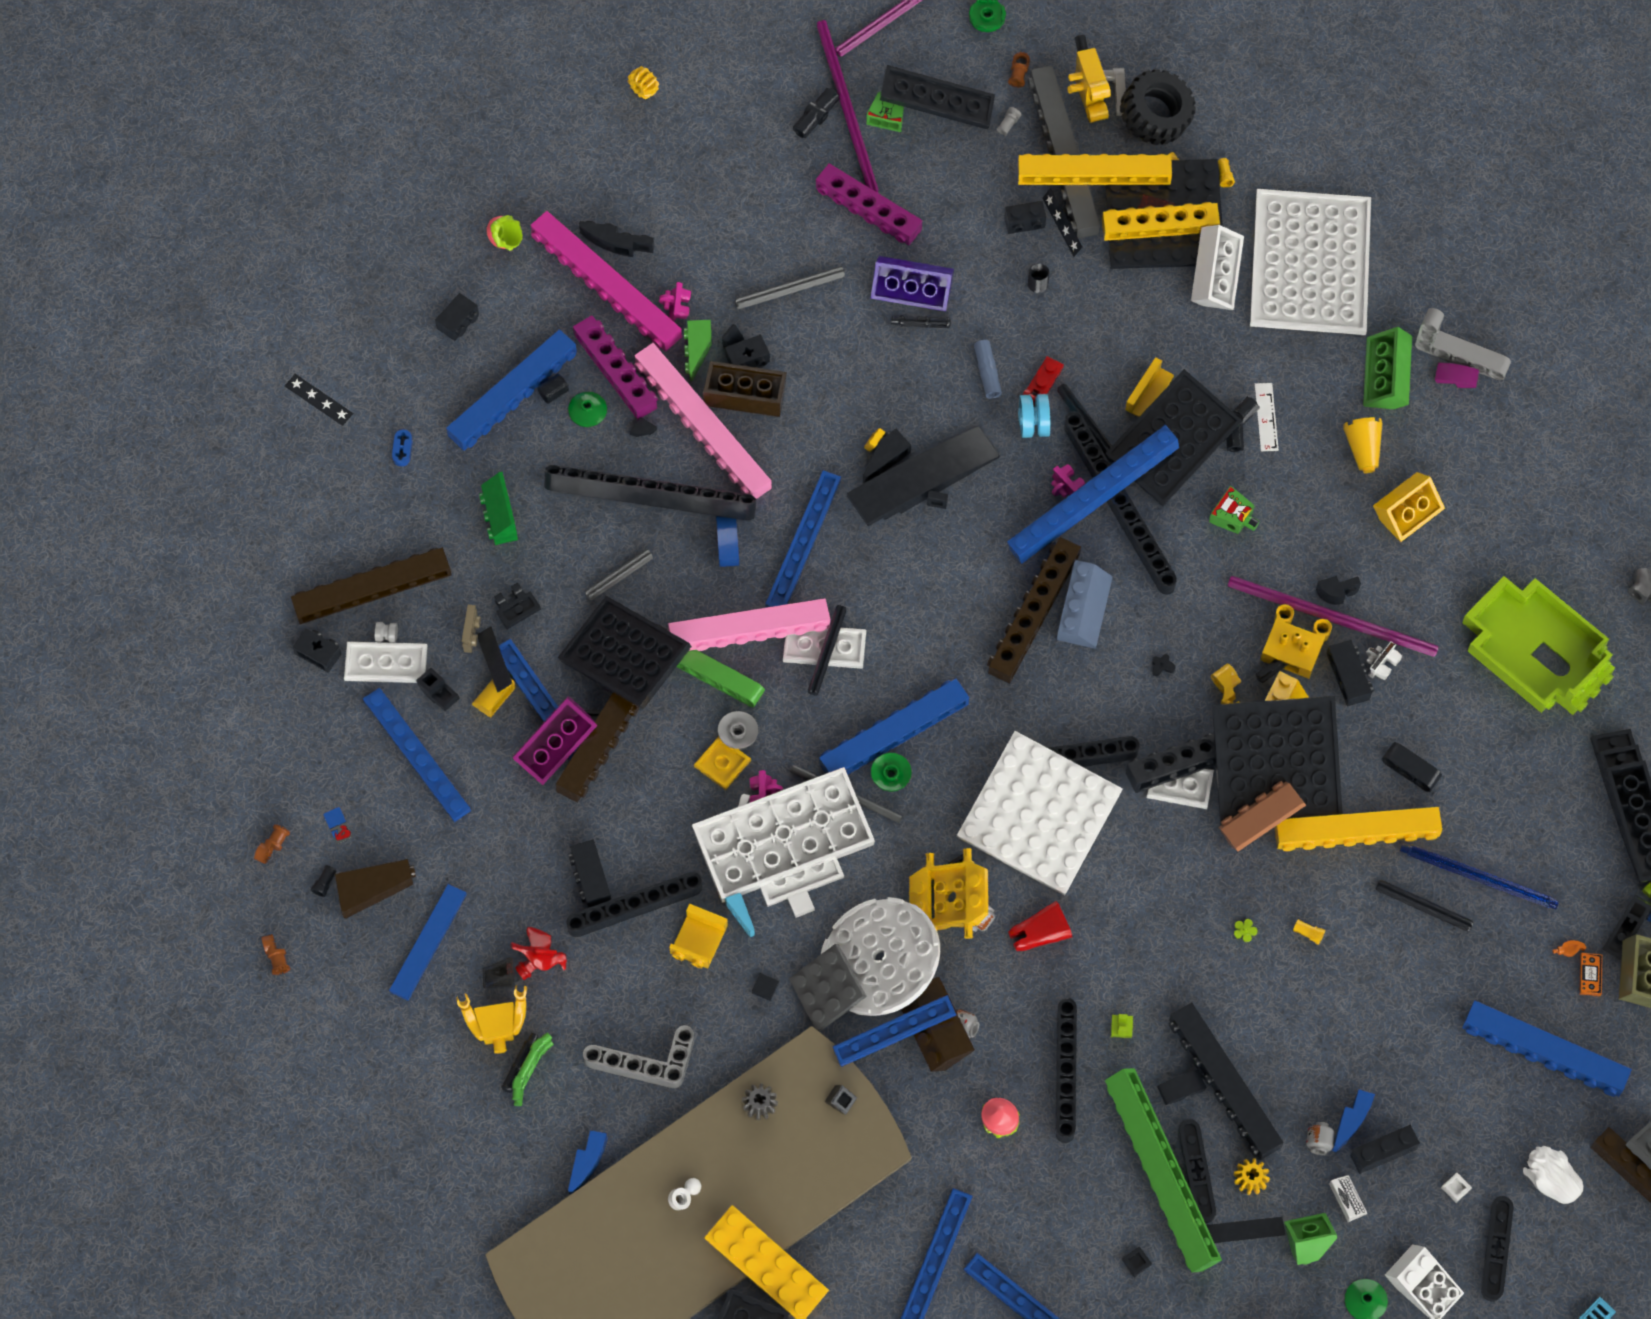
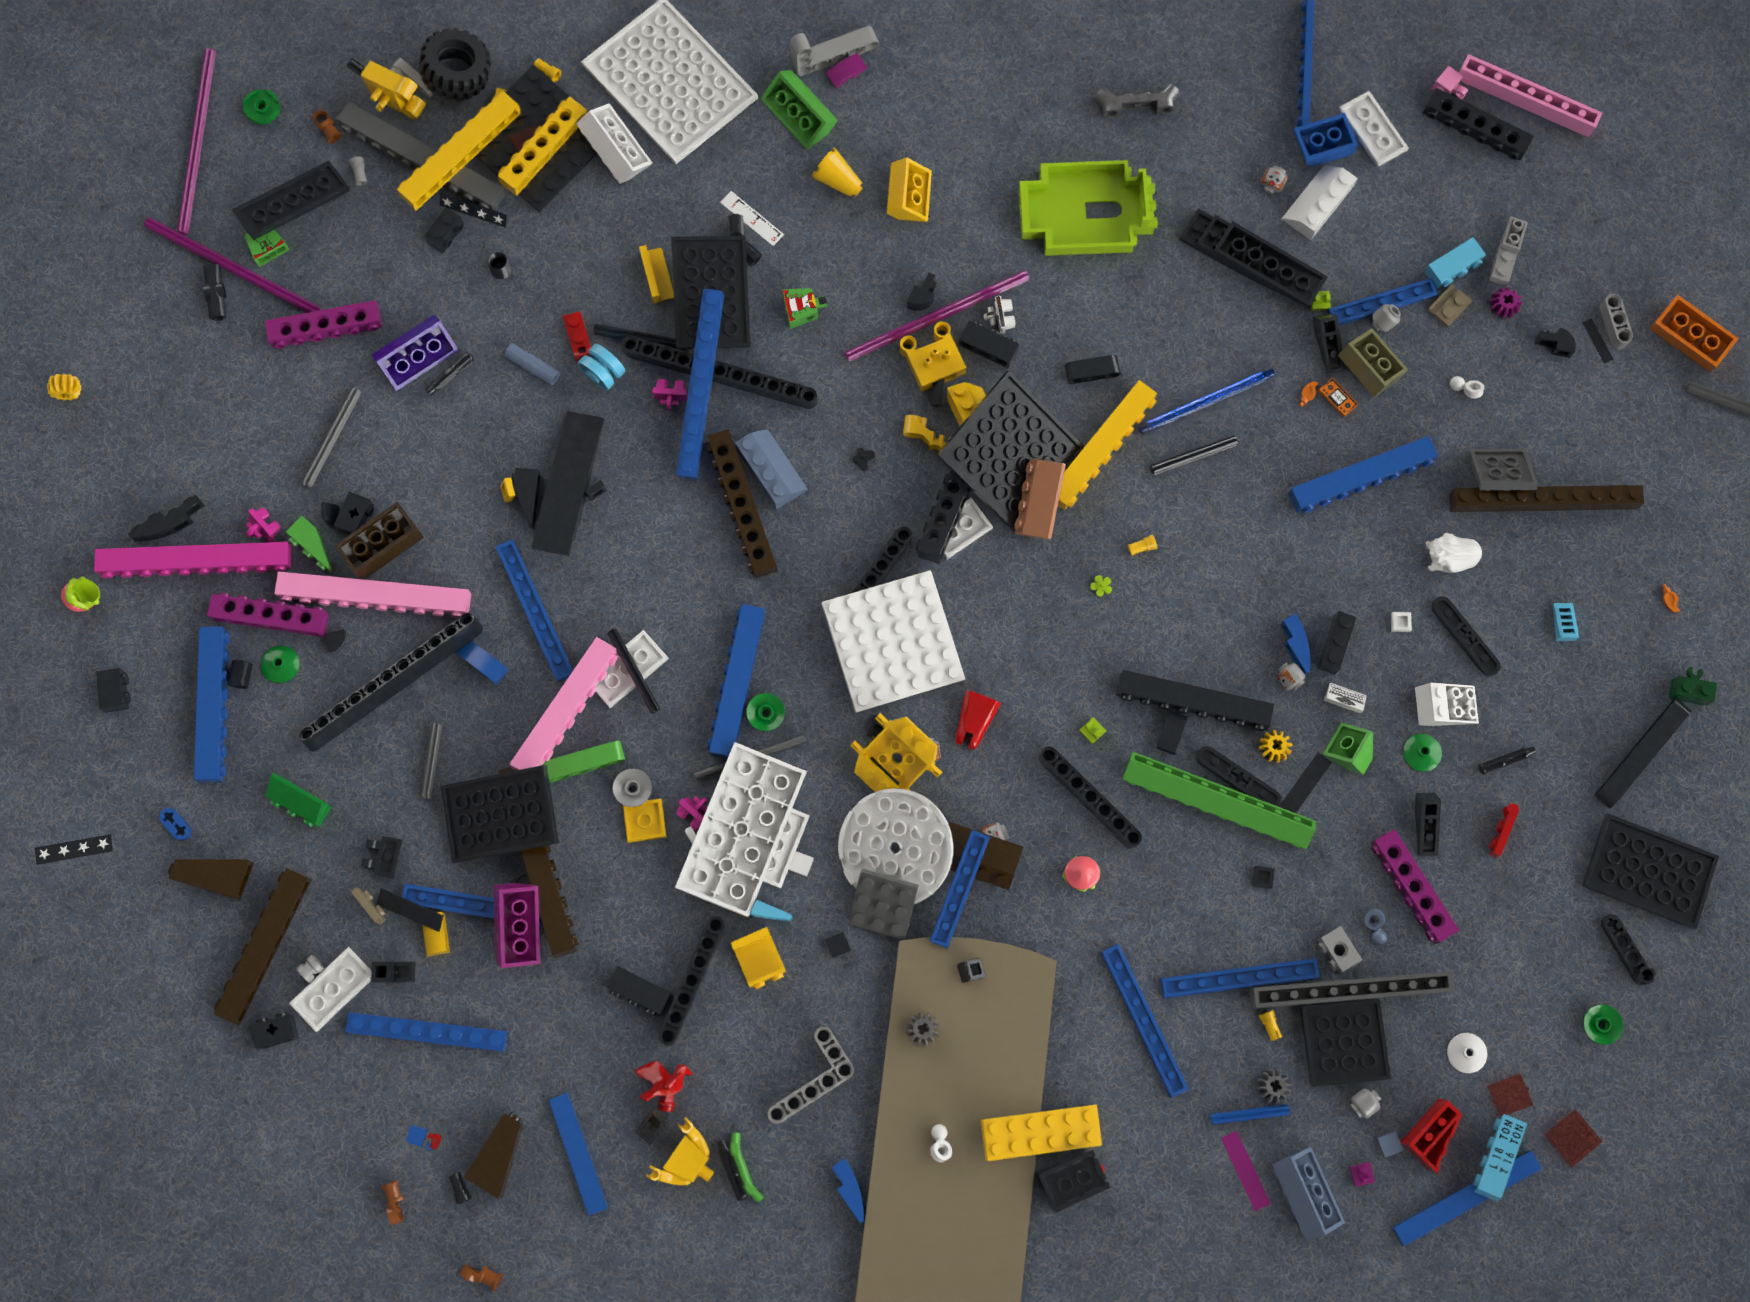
camera: 50 degrees left, 10 degrees up
(390, 506) = (214, 875): none -> dark brown slope

